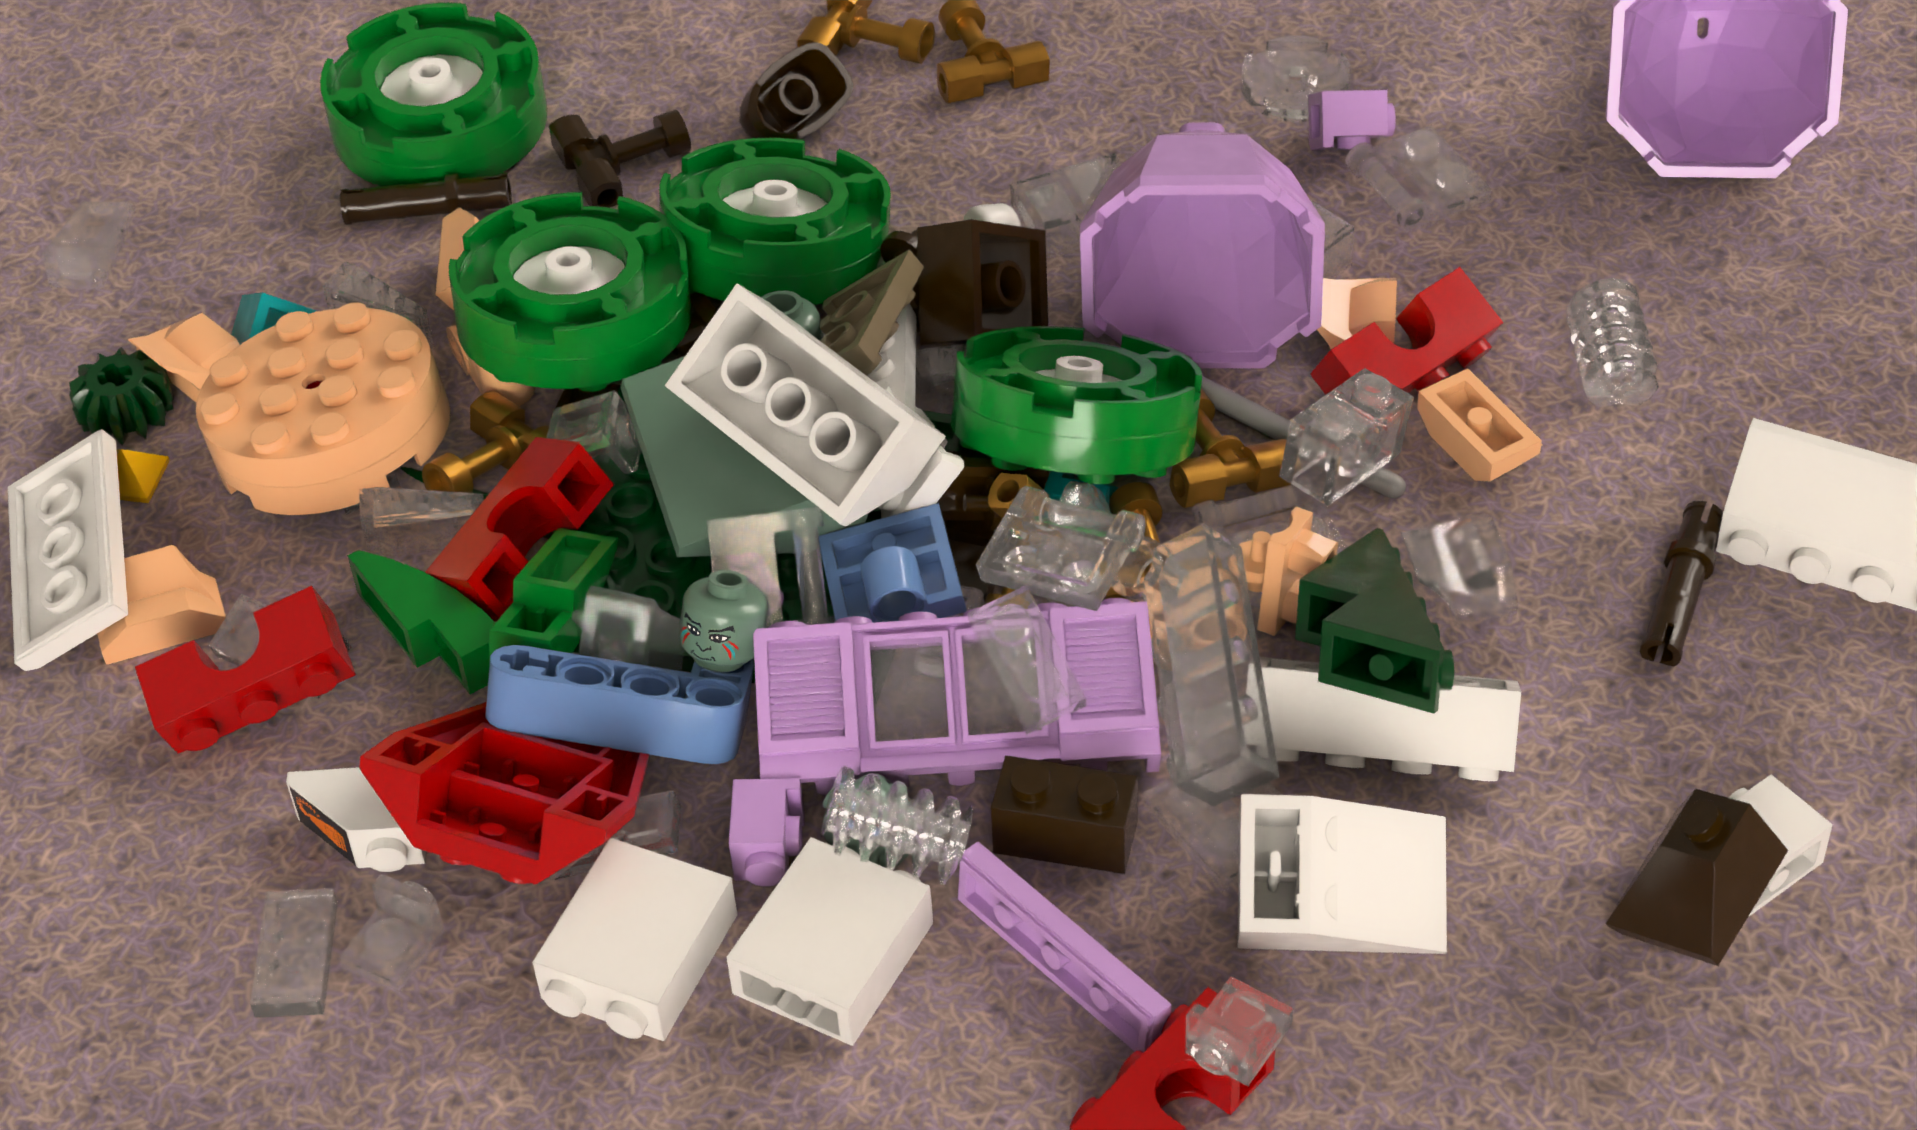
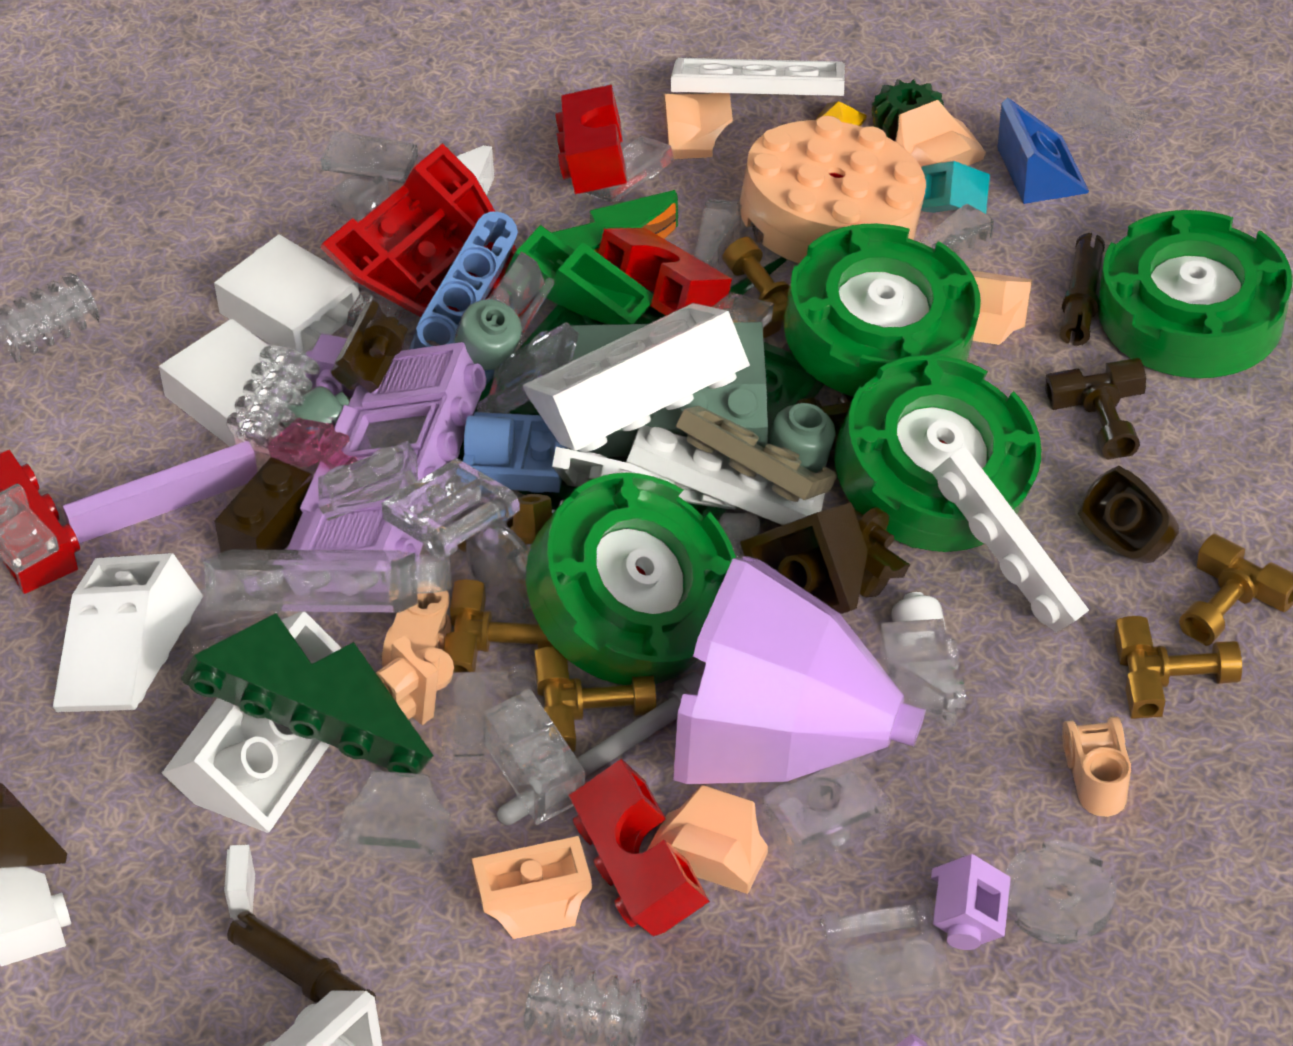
camera: 105 degrees right, 0 degrees up
(199, 272) = (1036, 157): none -> blue slope
(748, 740) = (369, 349): none -> dark brown hips
(898, 135) = (1009, 540): none -> white plate
(967, 761) = (308, 442): none -> clear pink plate
(1135, 72) = (1098, 765): none -> light nougat piece
(1614, 658) = (239, 880): none -> white tile

